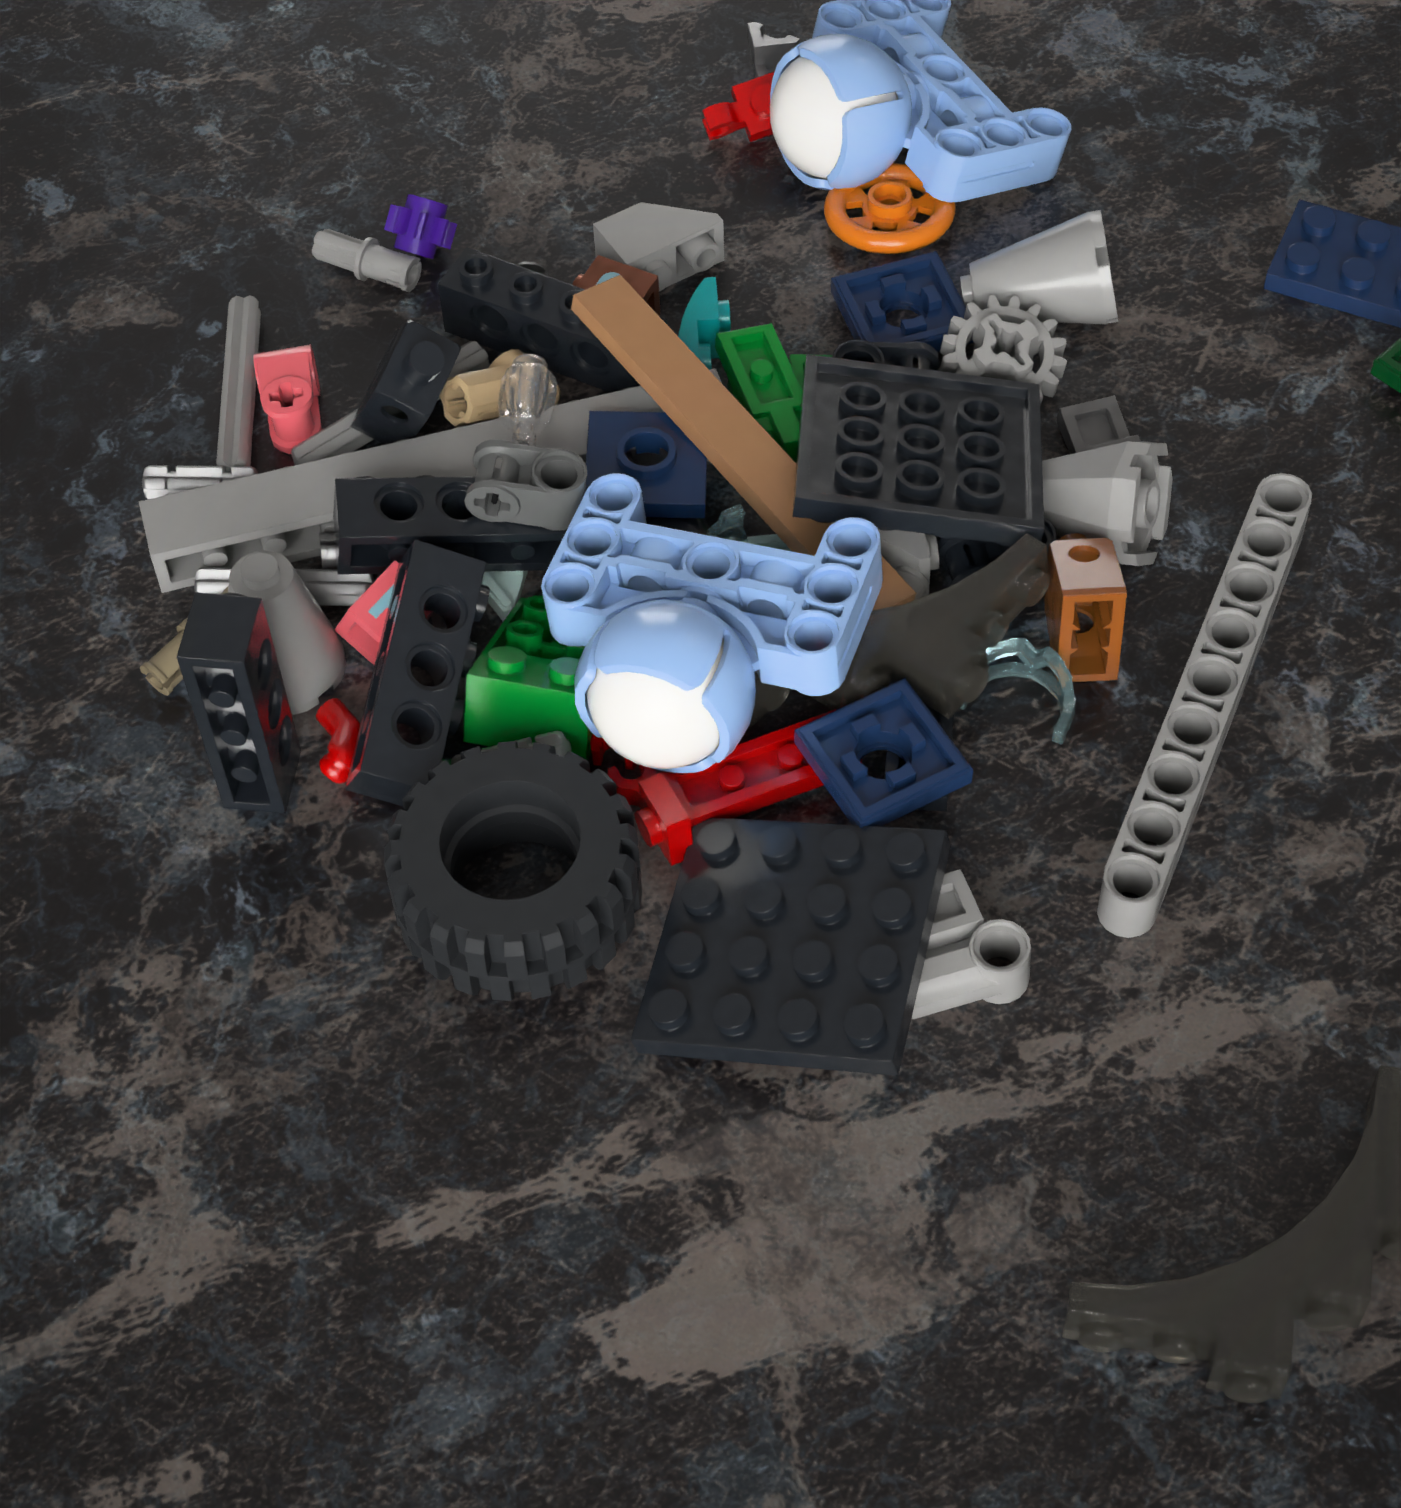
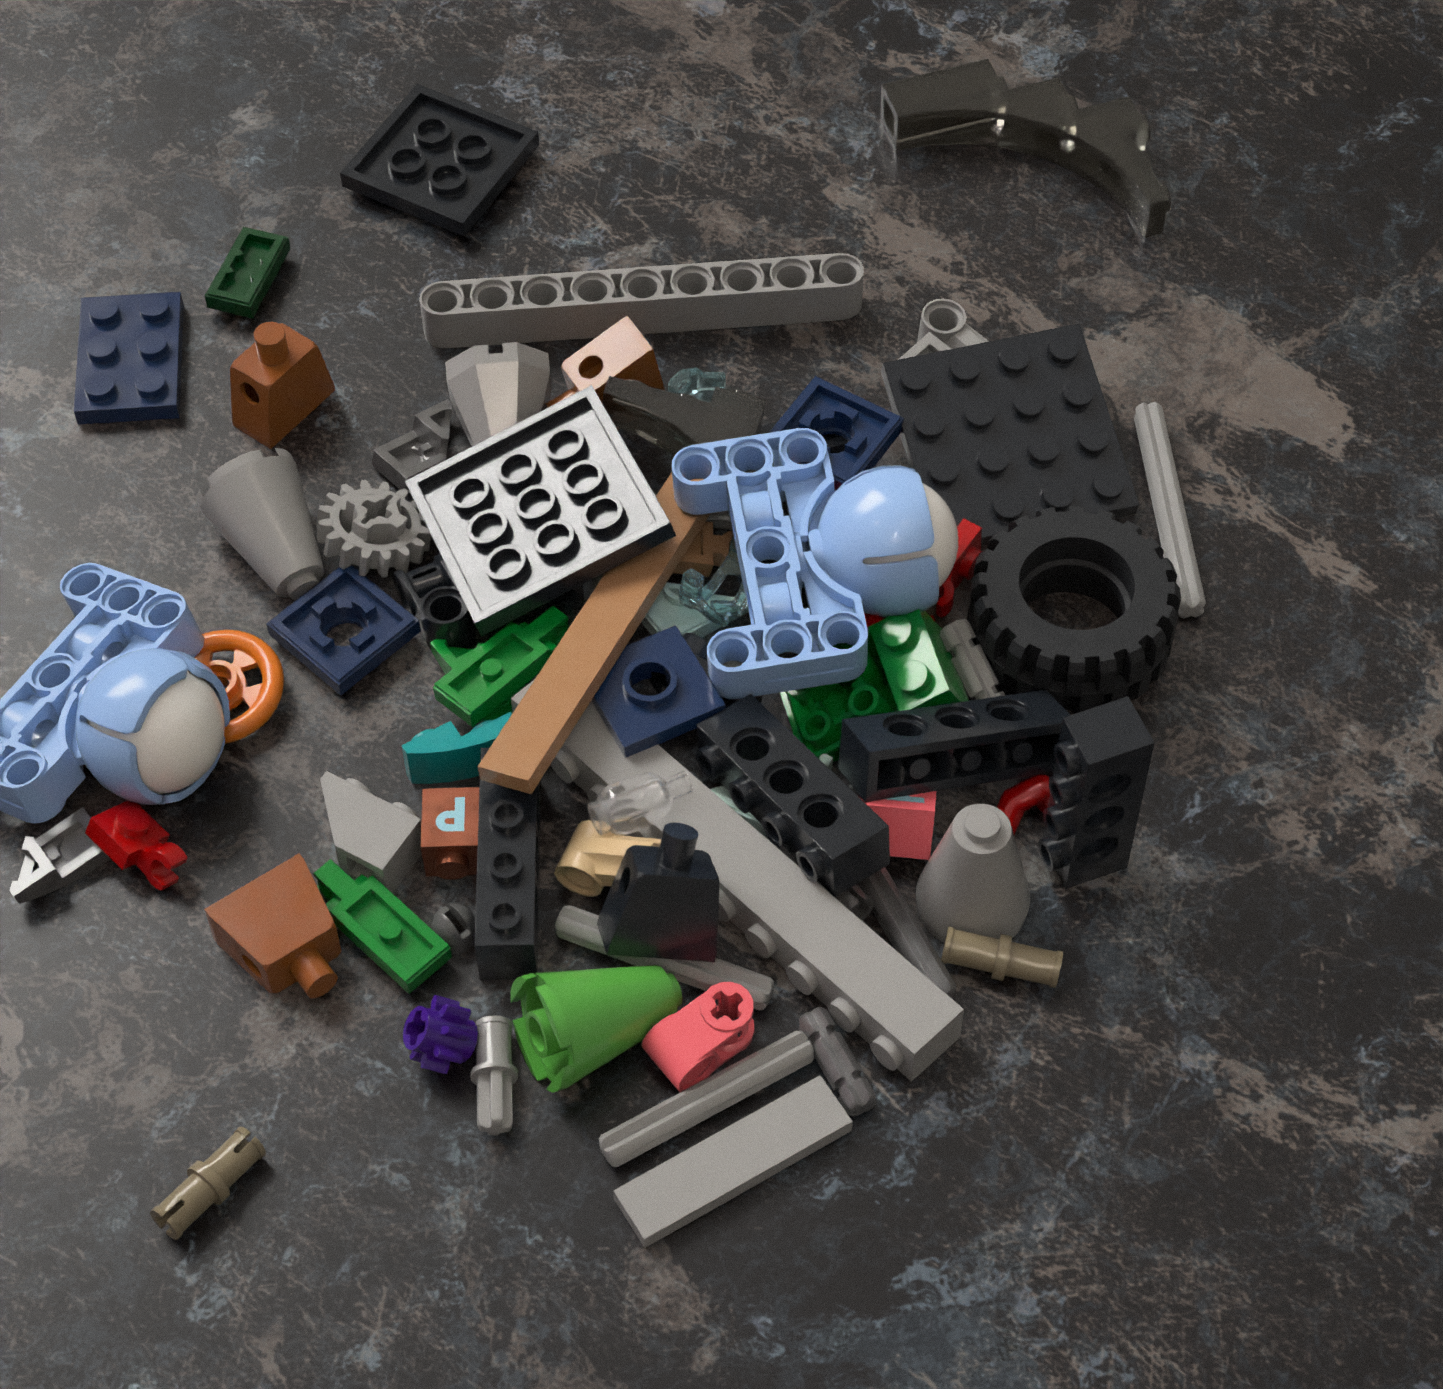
camera: 120 degrees left, 0 degrees up
(172, 380) = (732, 1161): none -> light grey tile
(354, 308) = (588, 1017): none -> bright green cone
(407, 69) = (208, 1183): none -> dark tan pin
(533, 484) = (753, 718): dark grey piece -> none
(551, 231) = (382, 926): none -> green hinge
(595, 166) = (279, 930): none -> dark orange torso
(615, 1076) = (1169, 506): none -> light grey axle
(1241, 340) = (277, 383): none -> dark orange torso

